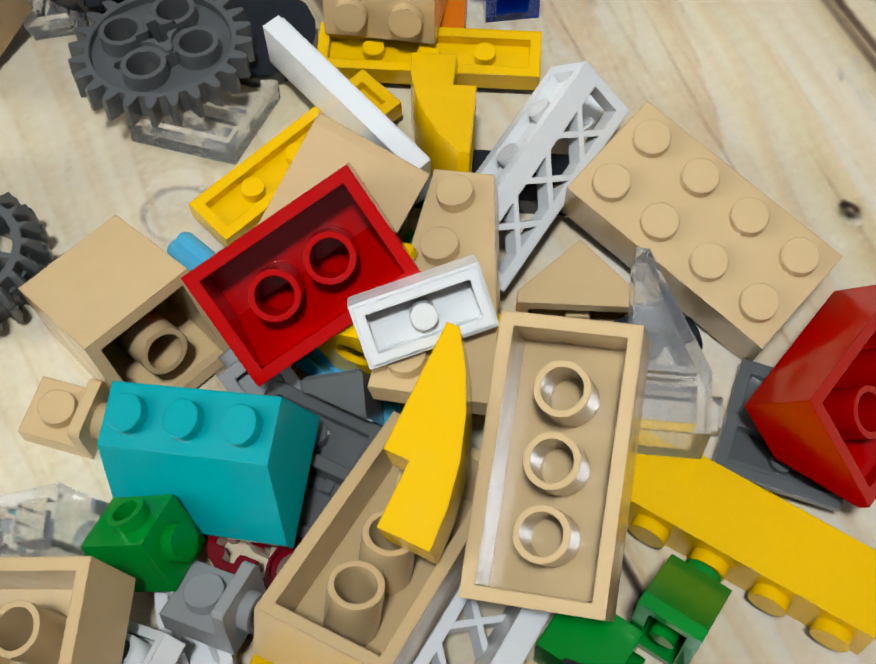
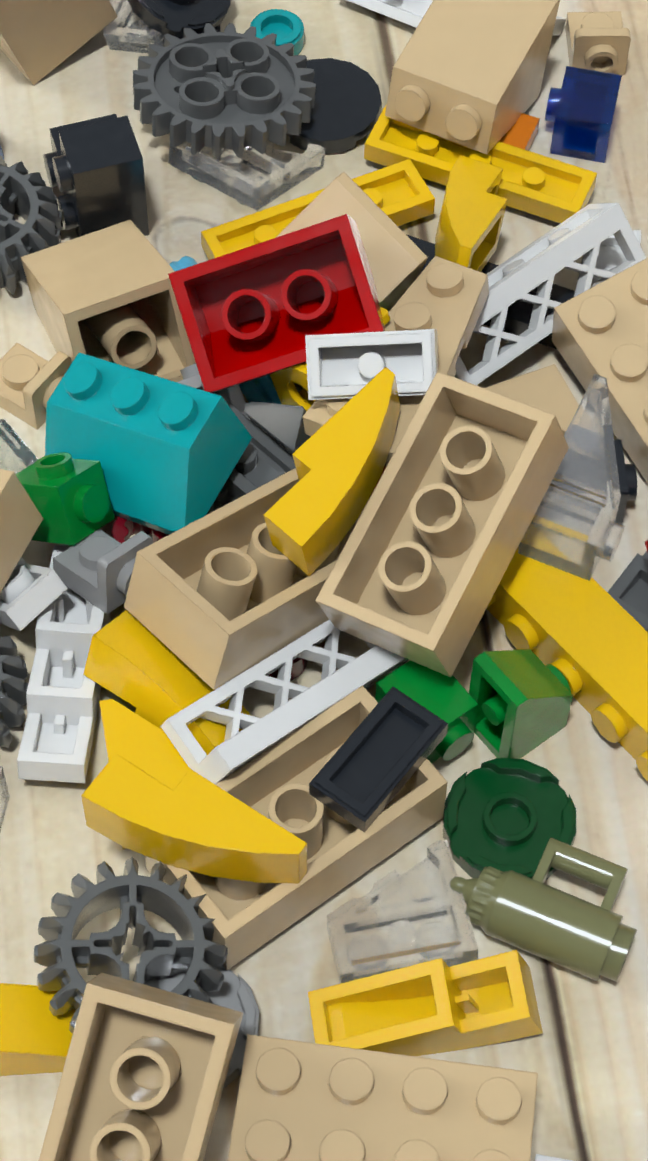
camera: 15 degrees right, 5 degrees down
(67, 177) = (98, 173): none -> black brick
(336, 94) = (369, 165): white tile -> none

